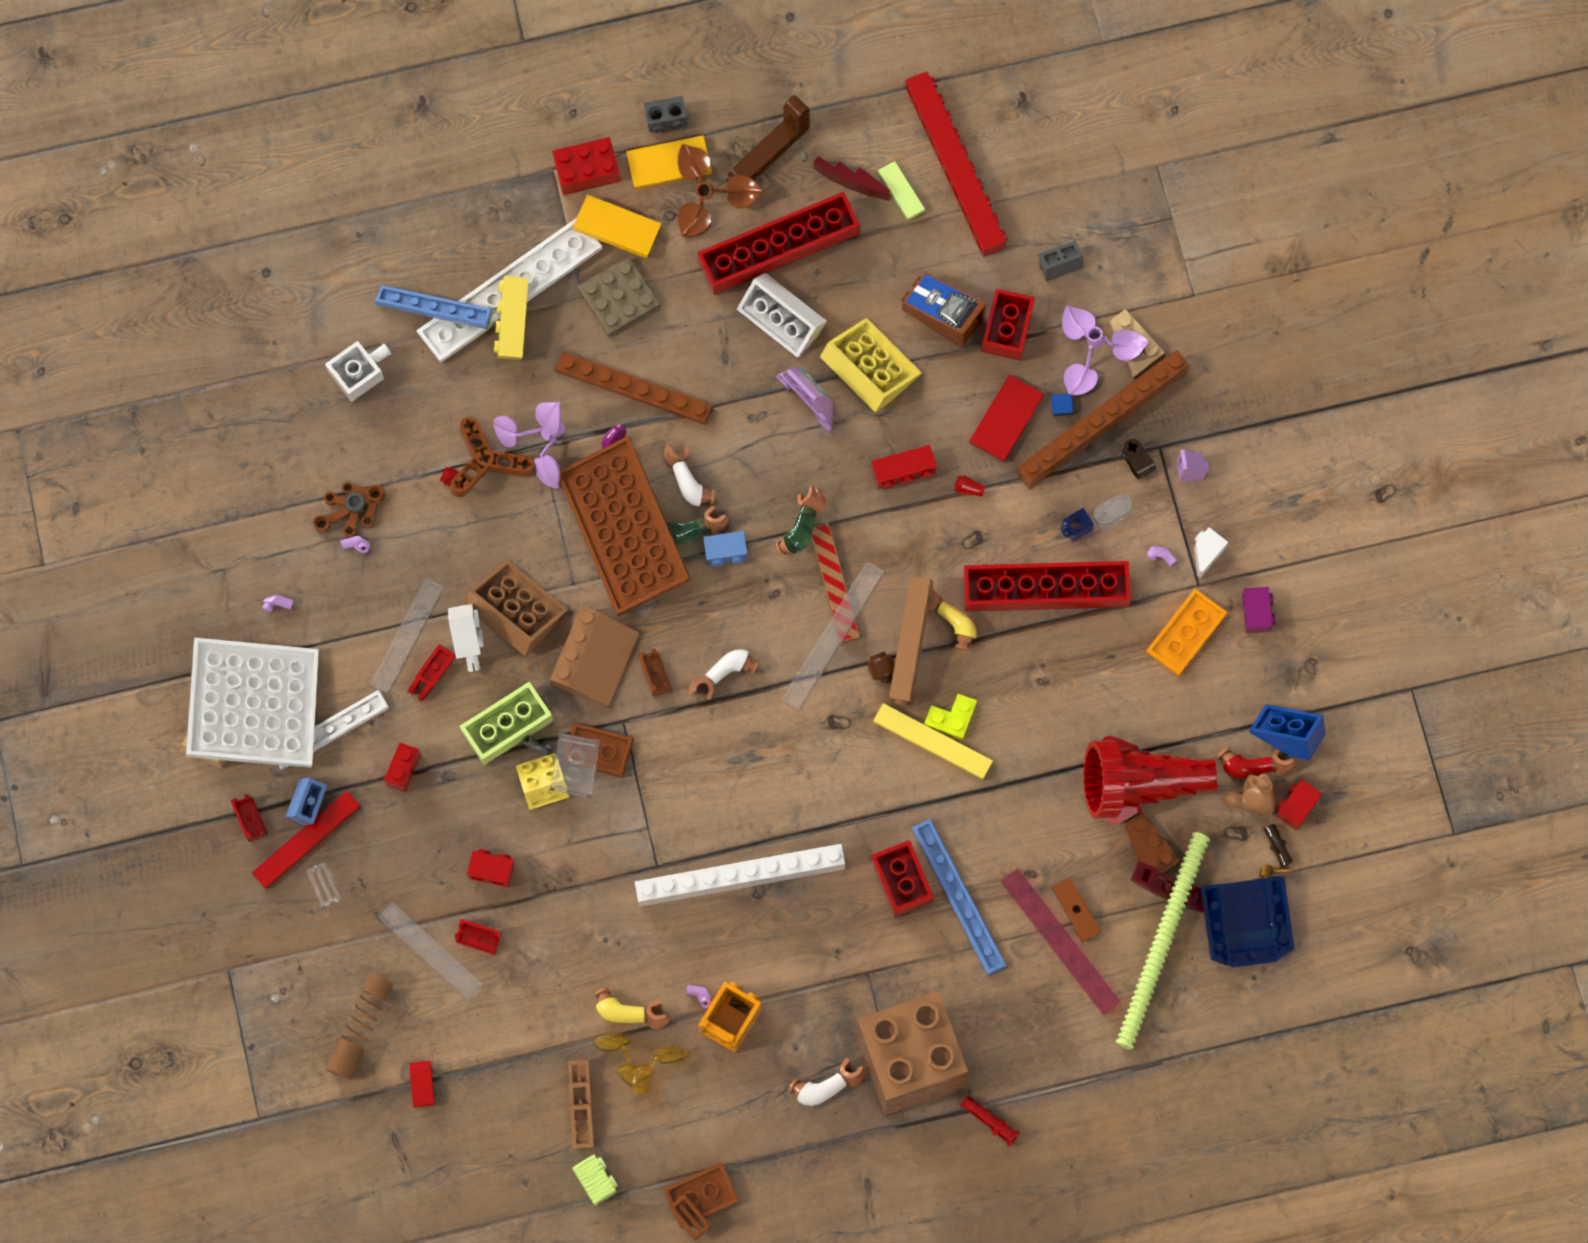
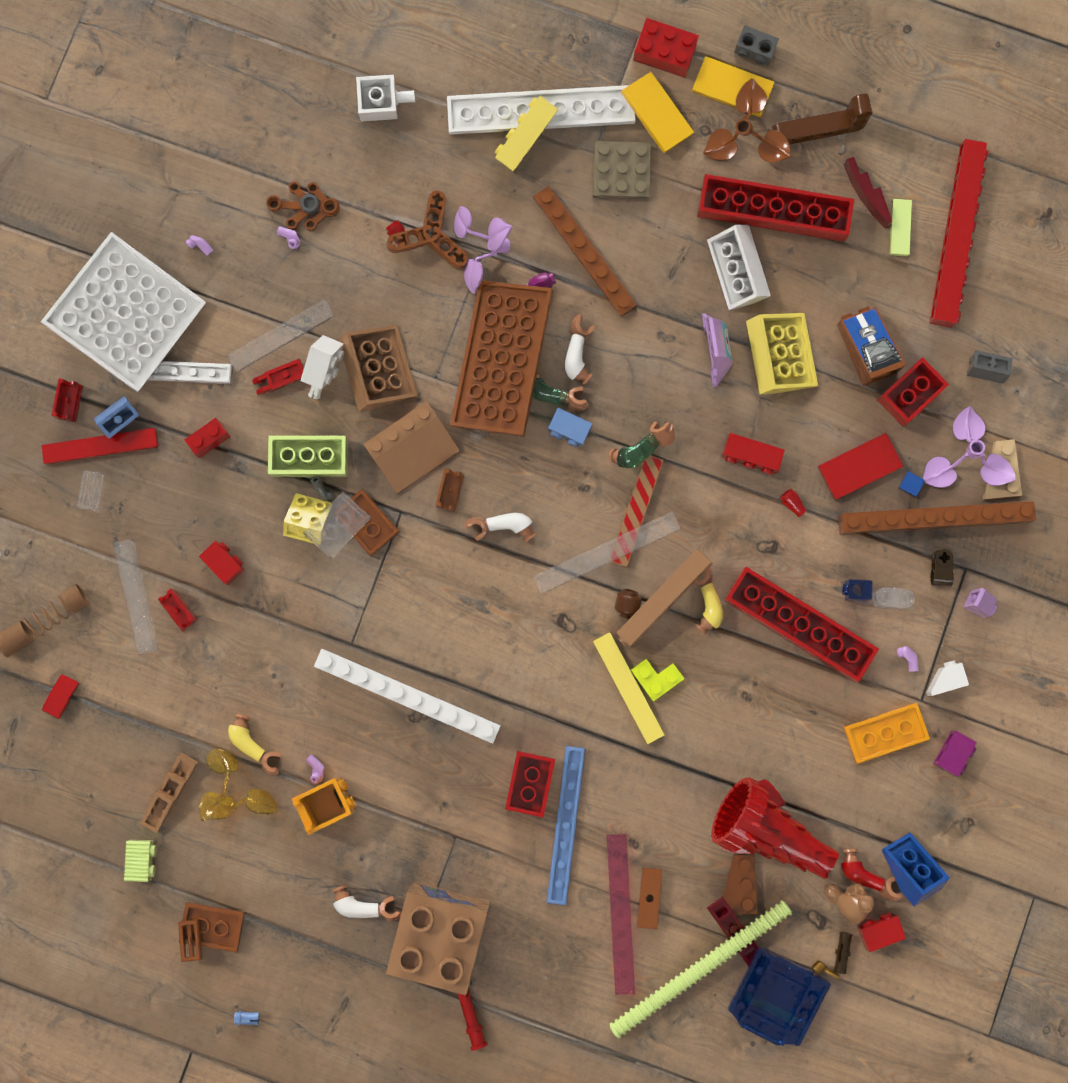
camera: 30 degrees right, 10 degrees up
(434, 307) = (472, 86): medium blue tile -> none

